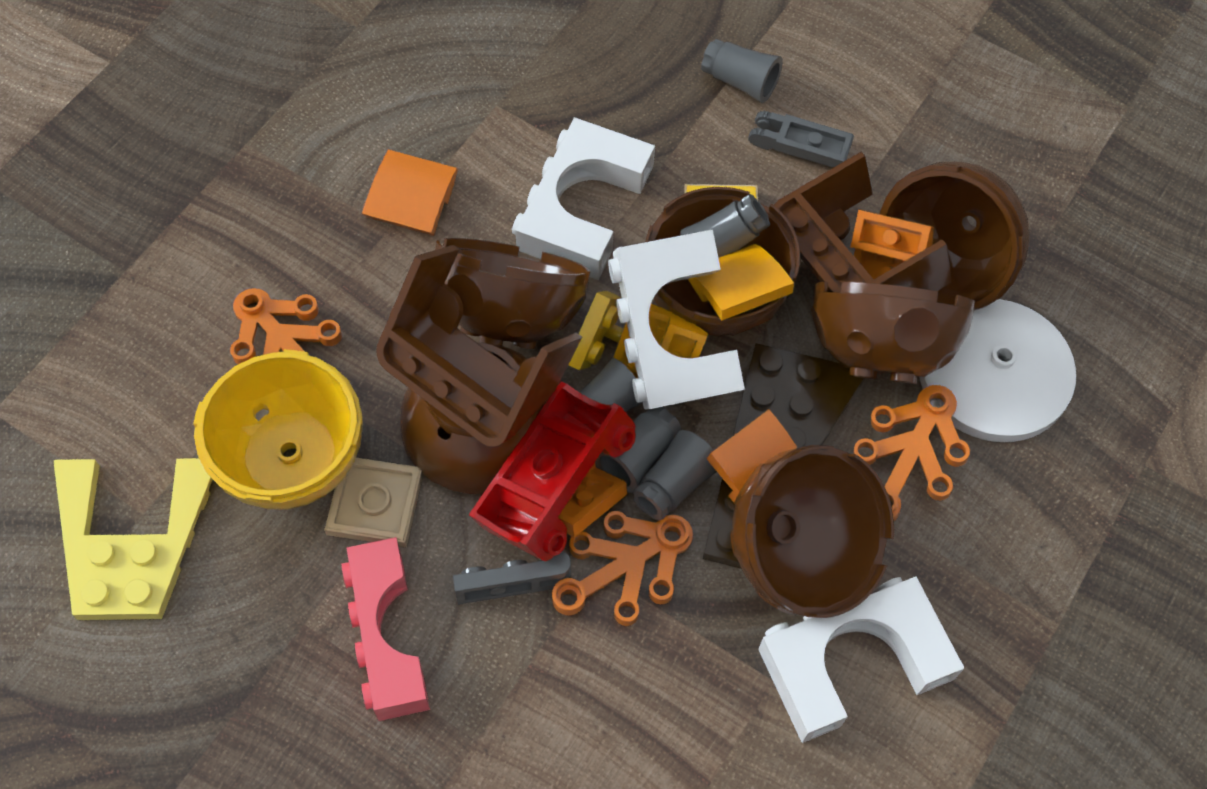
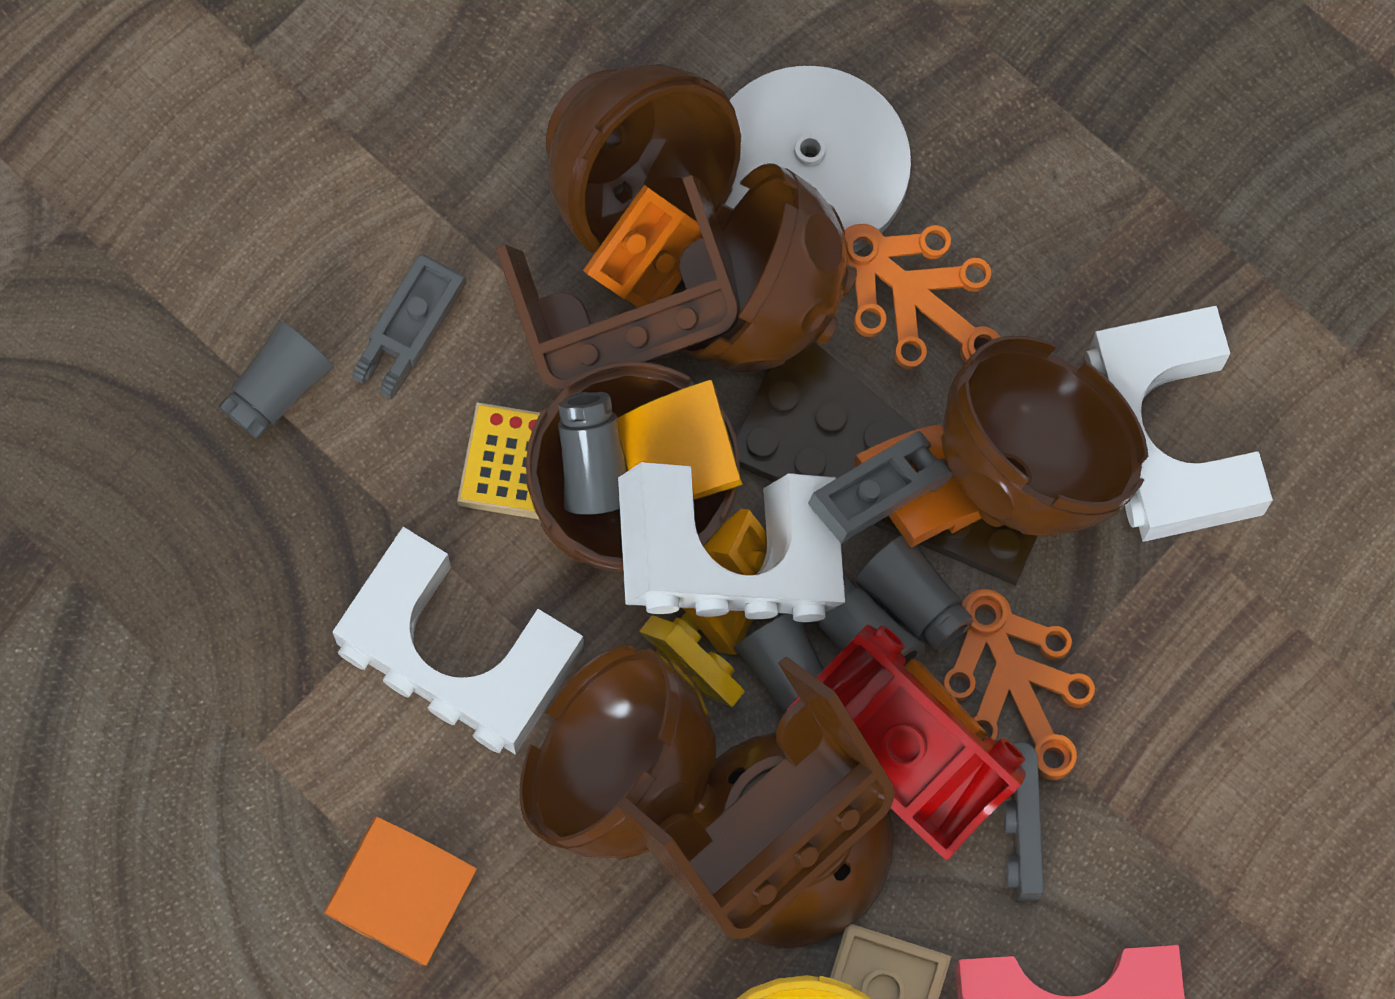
camera: 80 degrees left, 10 degrees up
(742, 415) = (879, 487): none -> dark grey plate

